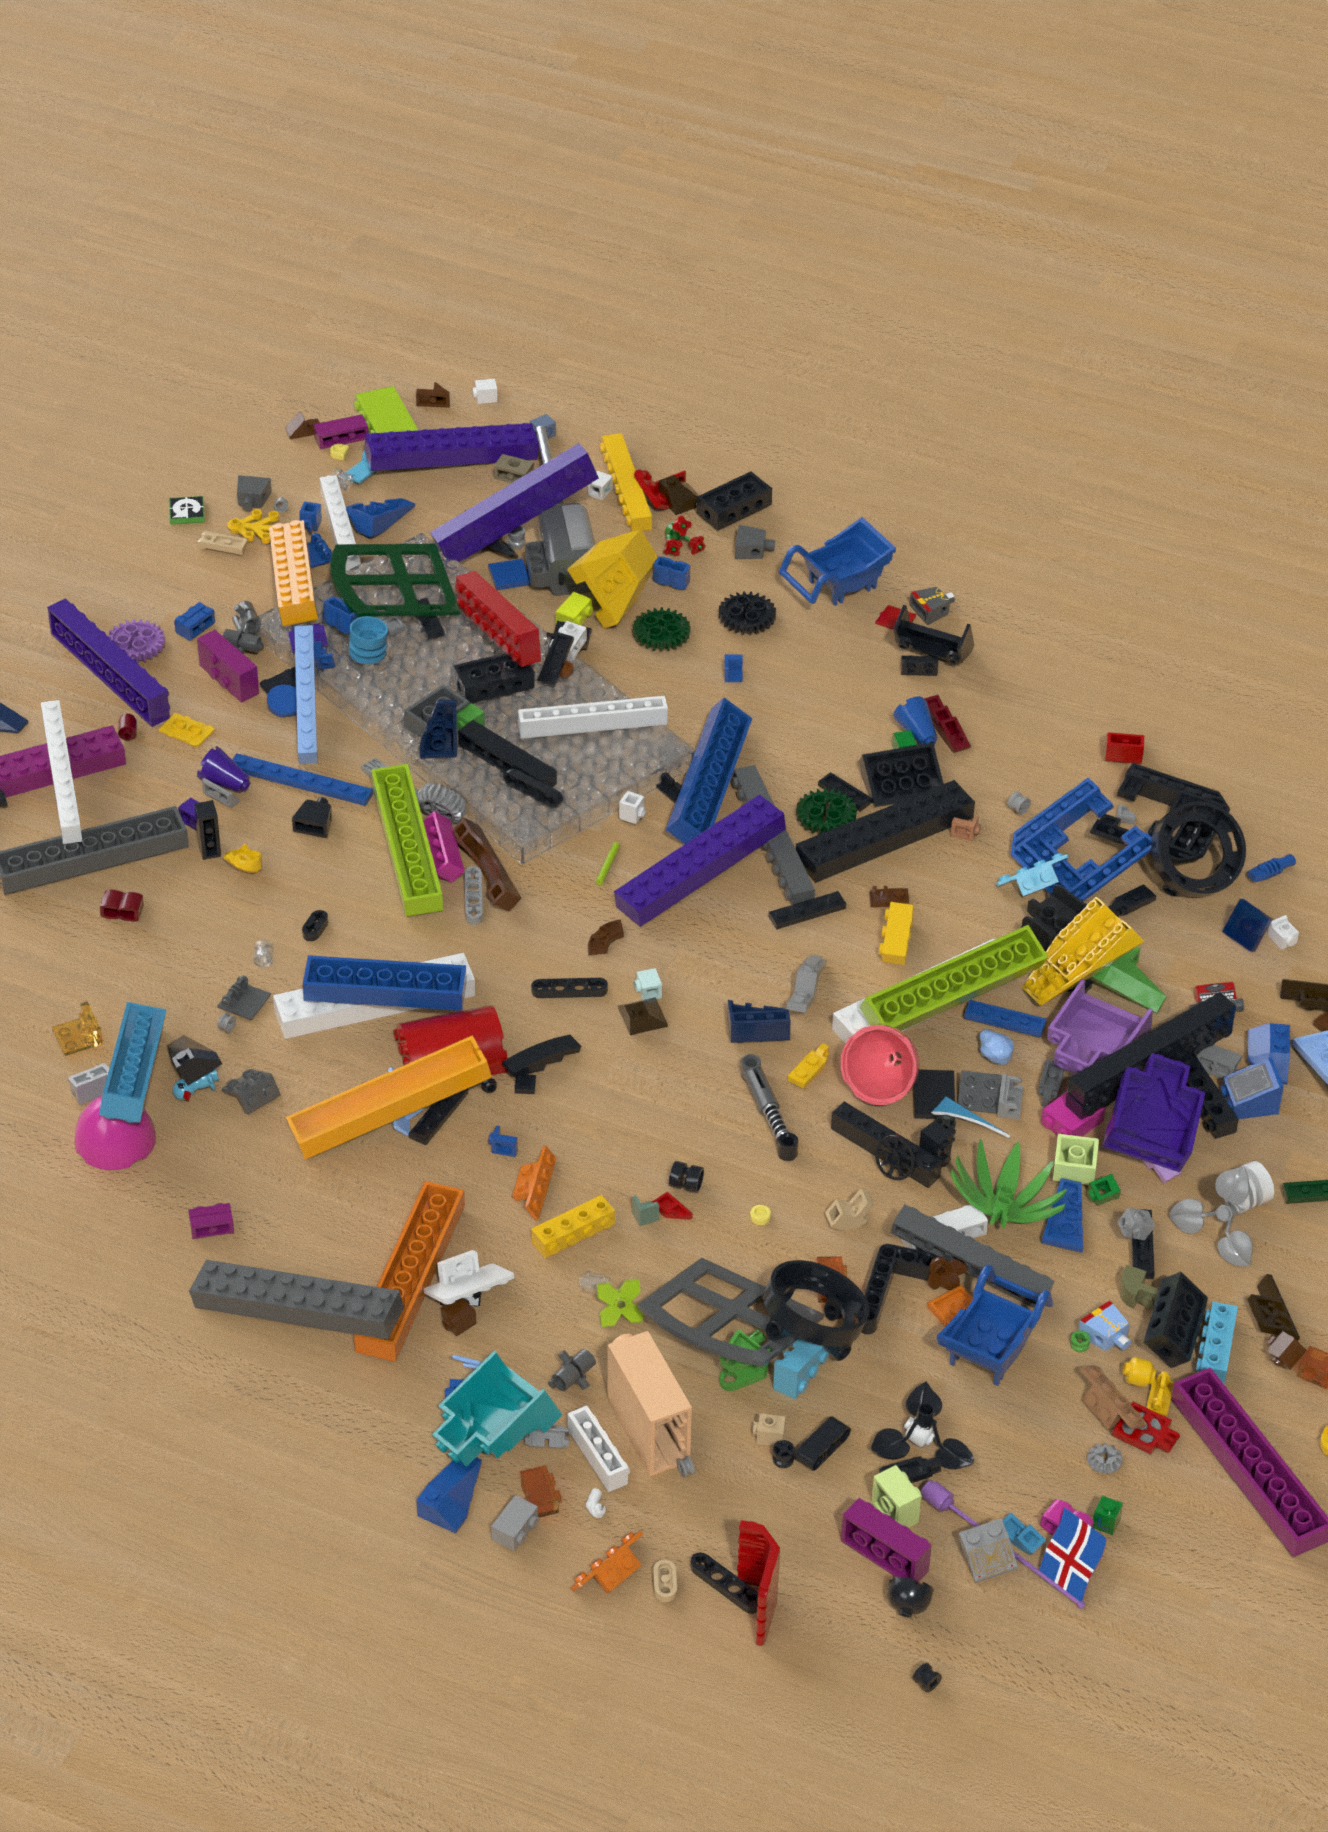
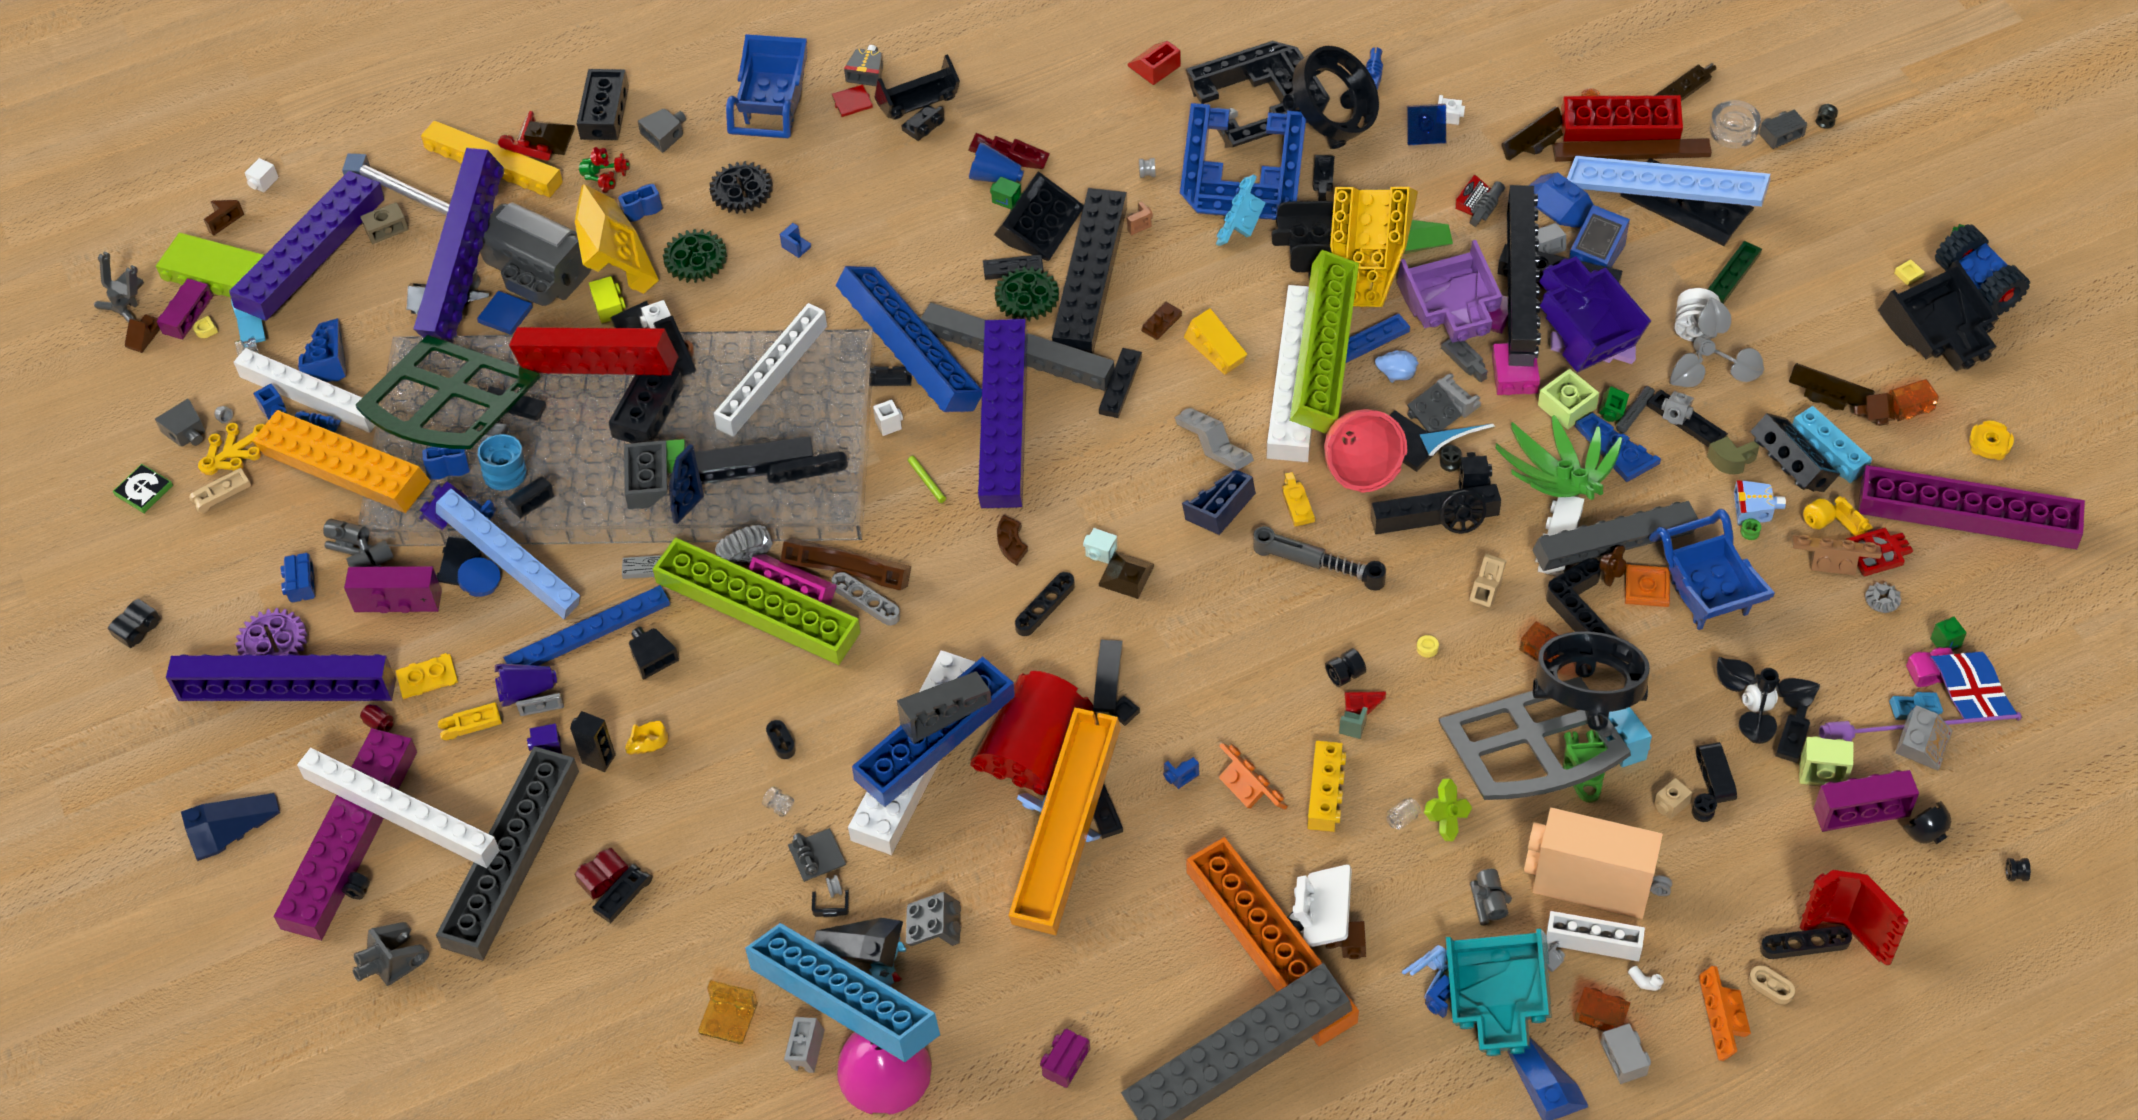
camera: 45 degrees left, 10 degrees up
(82, 574) = (134, 623): none -> black brick
(118, 925) = (621, 893): none -> black plate
(172, 770) = (469, 721): none -> yellow hinge
(208, 1036) = (830, 912): none -> black piece
(318, 390) = (121, 291): none -> dark grey piece
(360, 674) = (530, 497): none -> black brick
(396, 964) = (942, 705): none -> dark grey wedge
(1115, 1208) = (1635, 409): none -> dark grey axle

